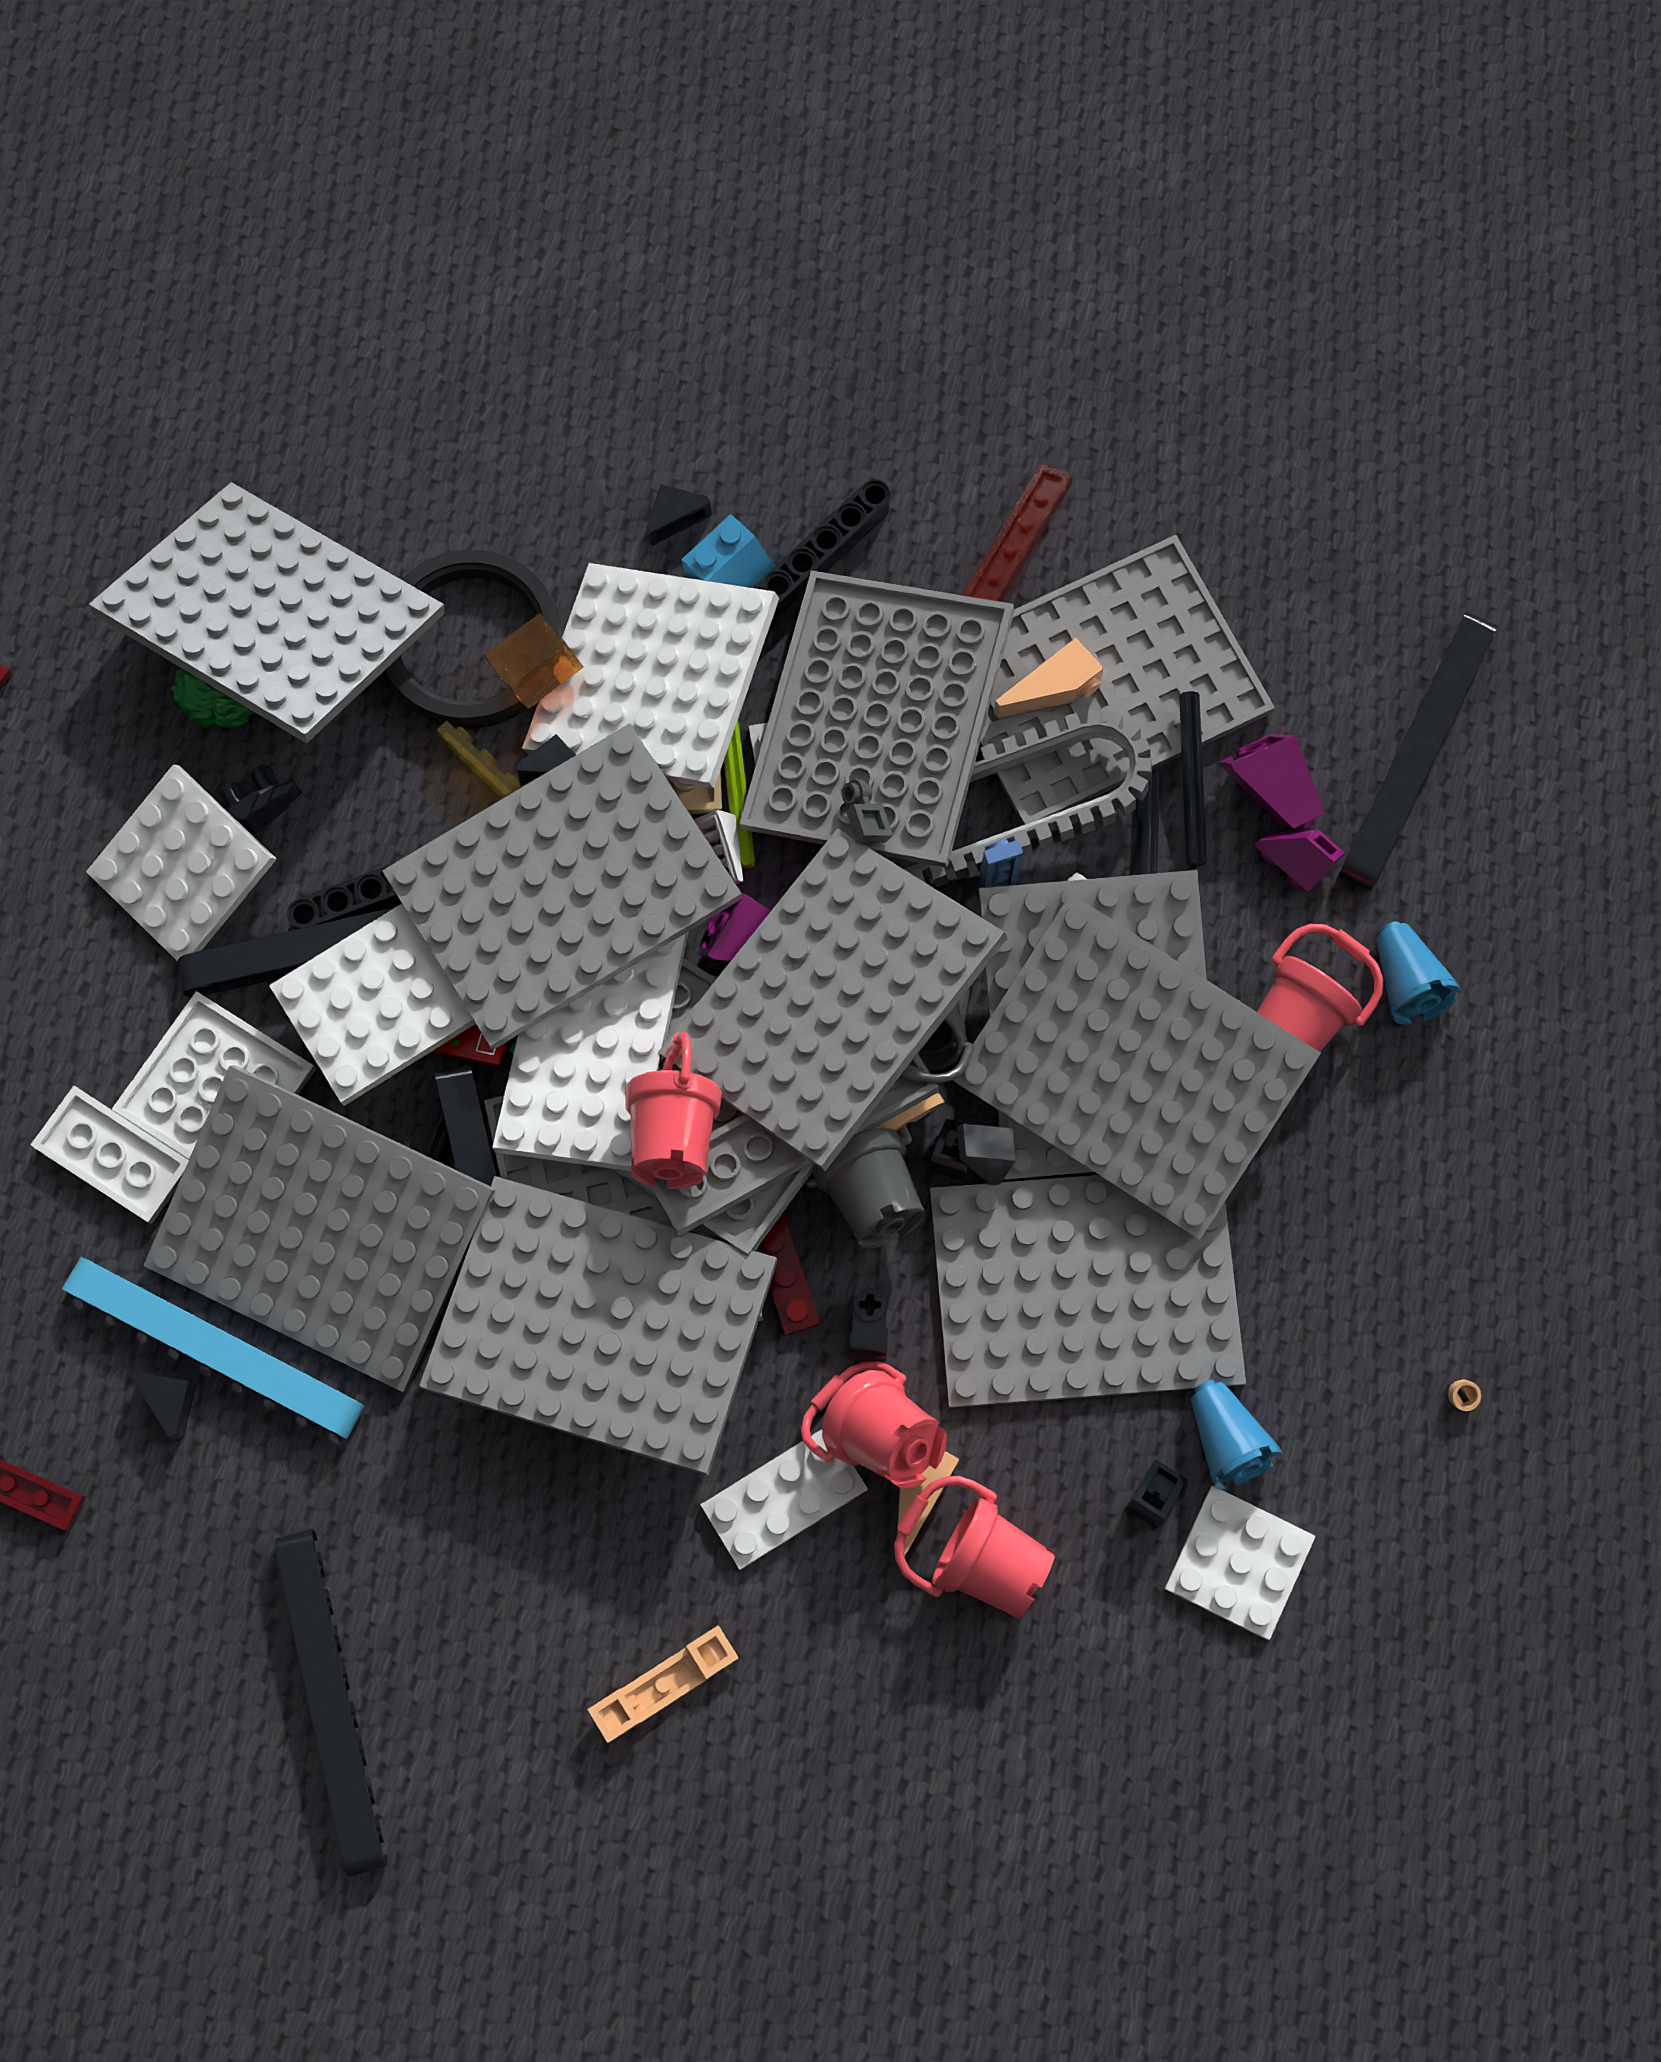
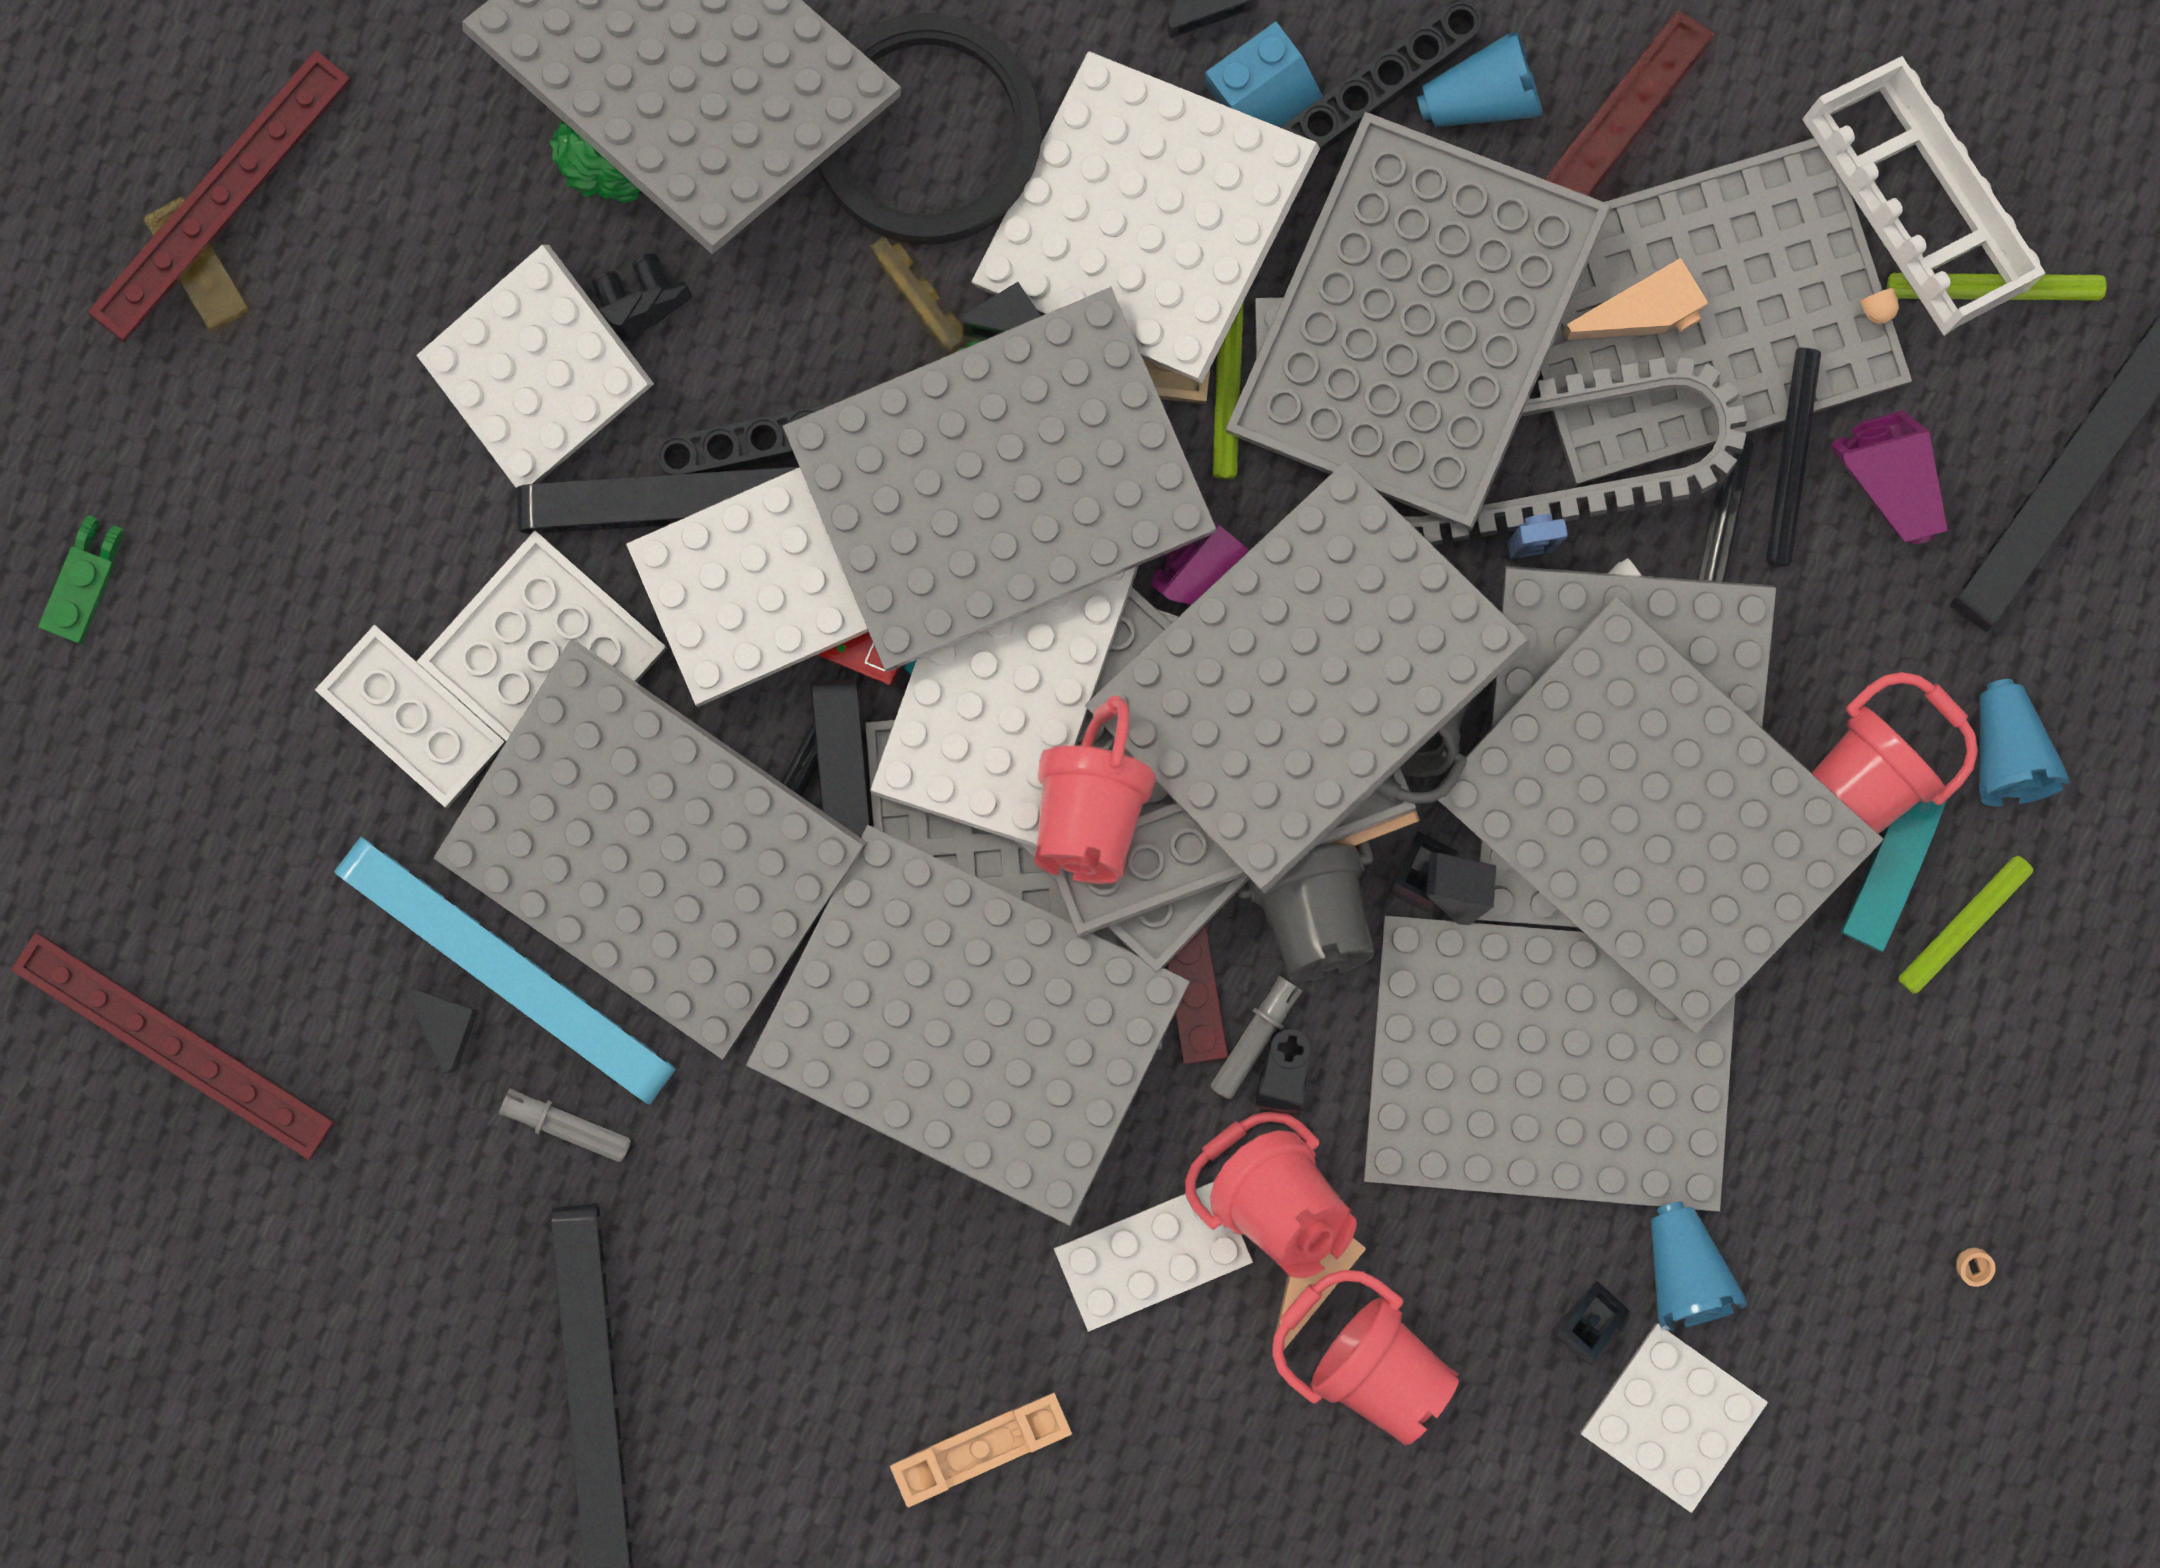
camera: 10 degrees right, 10 degrees up
(277, 1468) = (564, 1125): none -> light grey axle
(533, 661) = (1002, 177): clear orange slope -> none
(723, 827) = (1208, 436): white slope -> none
(840, 1303) = (1256, 1036): none -> light grey axle
(866, 819) = (1383, 457): dark grey plate -> none
(900, 541) = (1483, 88): none -> dark azure cone
(1239, 652) = (1881, 306): none -> light nougat hinge
(1276, 545) = (1955, 172): none -> white window
(1301, 854) = (1908, 575): magenta slope -> none
(1326, 629) = (2046, 288): none -> lime axle
(1333, 1088) = (1891, 875): none -> teal slope
(1400, 1121) = (1965, 924): none -> lime axle

